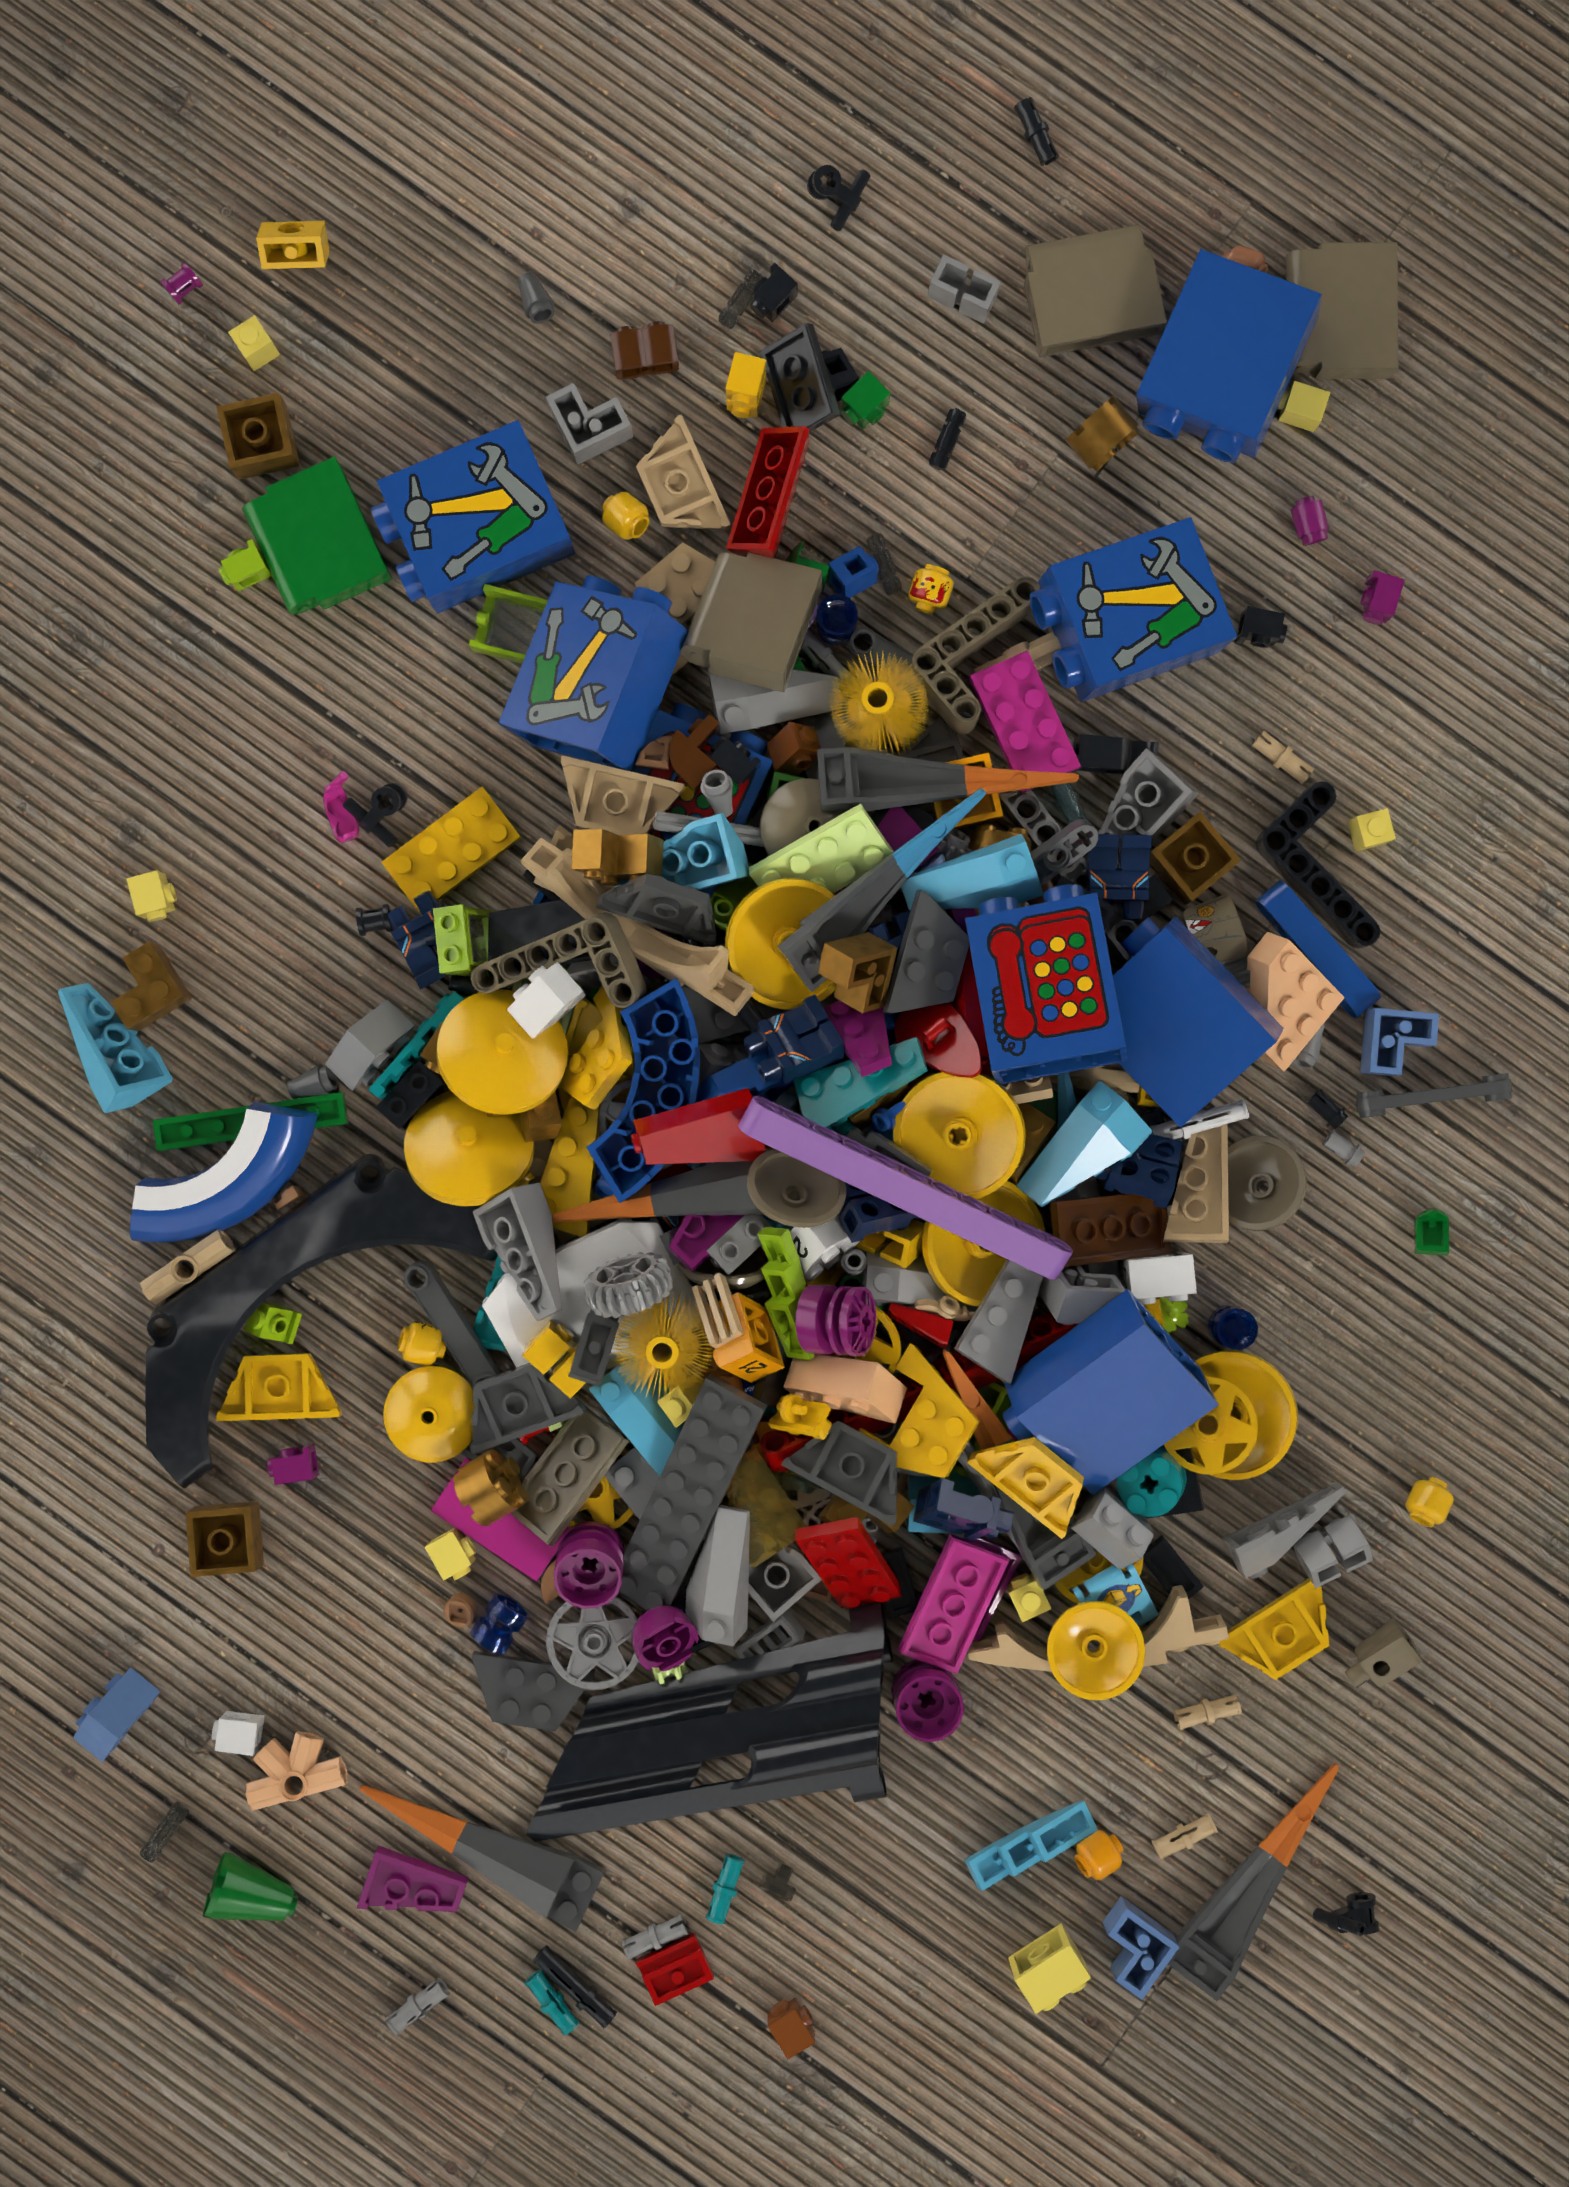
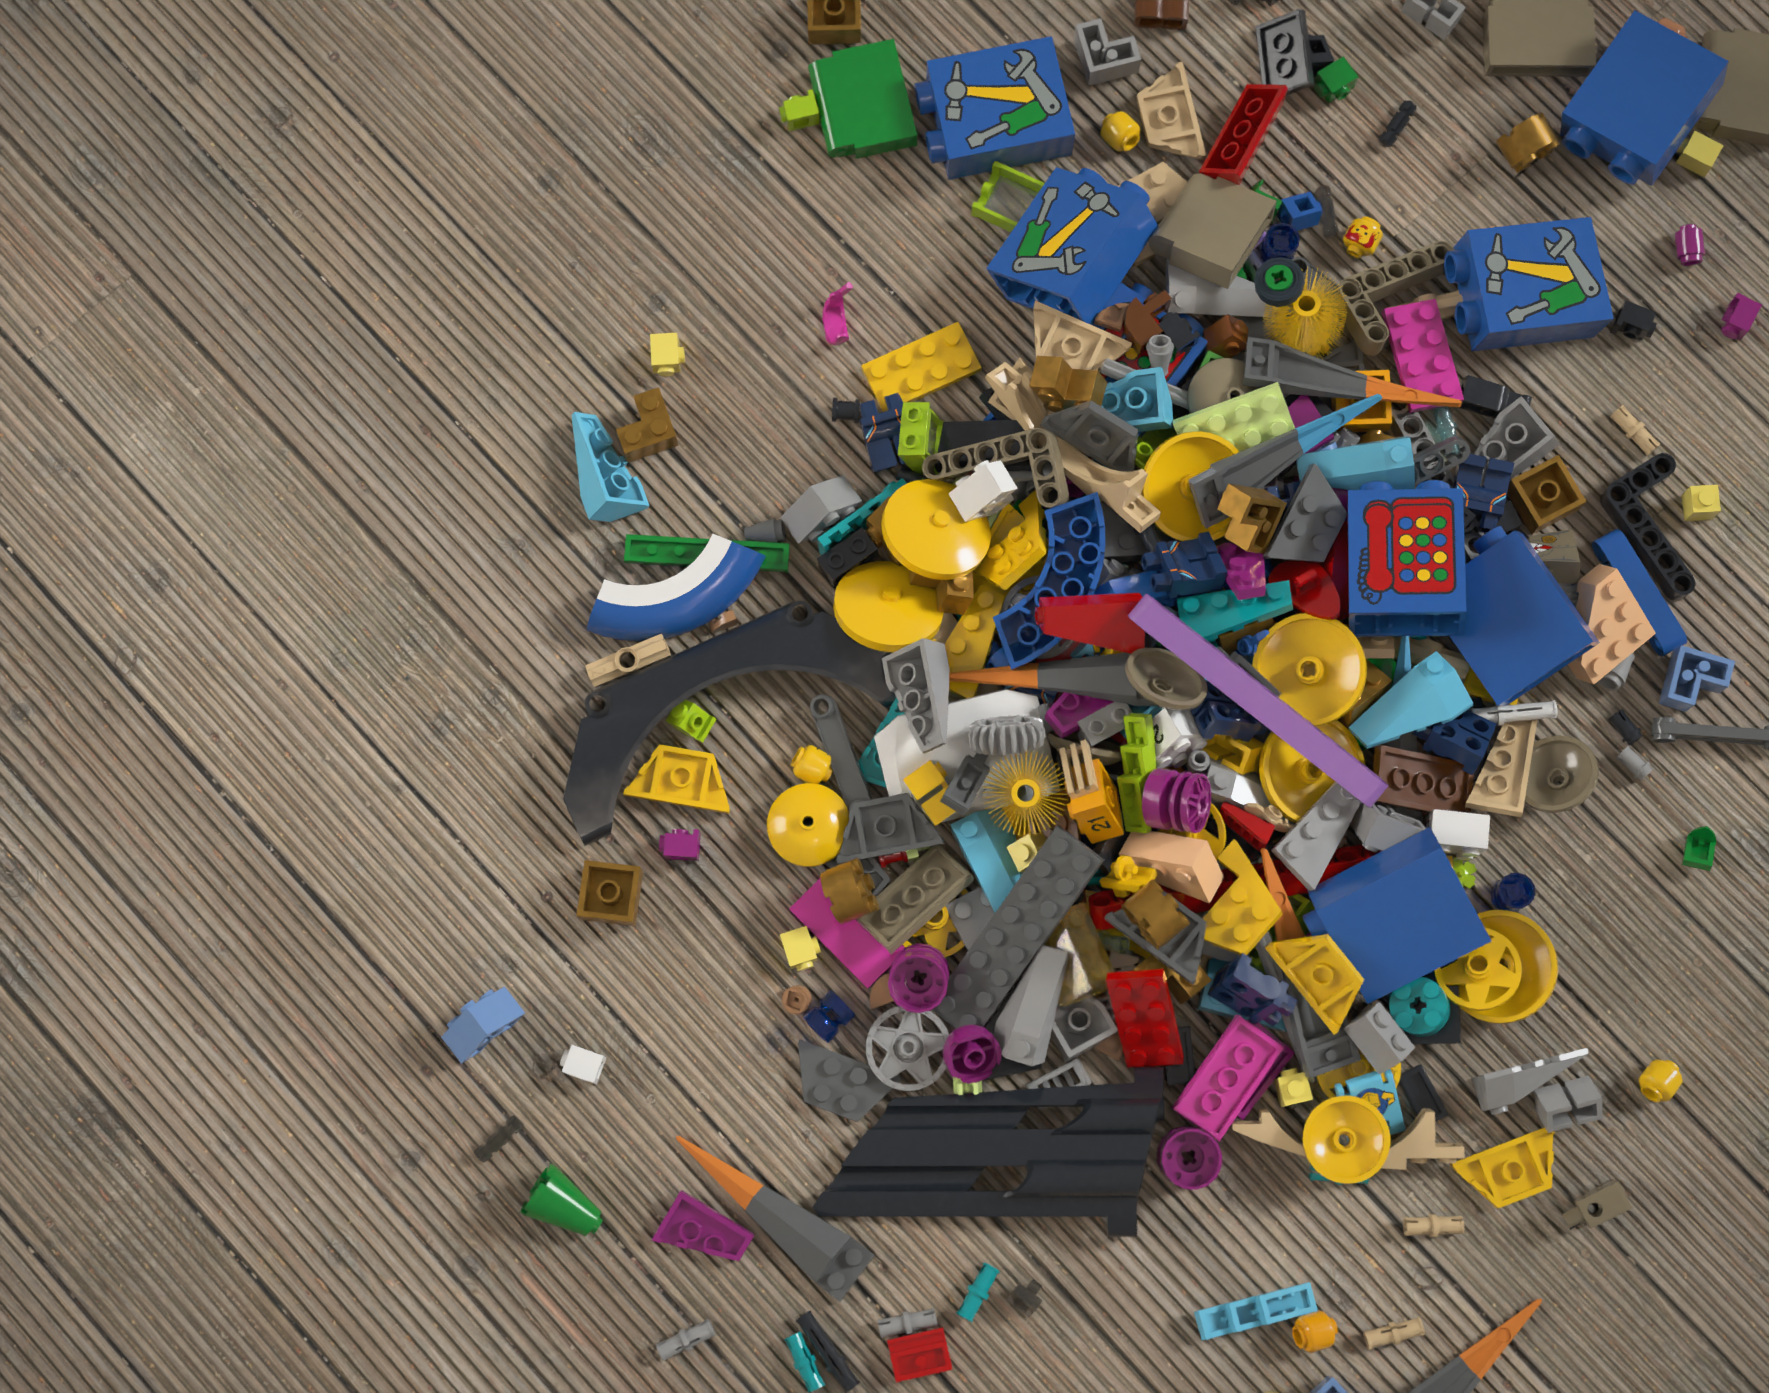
camera: 20 degrees right, 10 degrees down
(300, 1762) = (615, 1102): light nougat piece -> none
(371, 821) = (860, 330): black piece -> none
(745, 385) = (1240, 48): yellow piece -> none
(835, 1462) = (1155, 914): none -> pearl gold brick
(847, 688) = (1283, 291): none -> black wheel

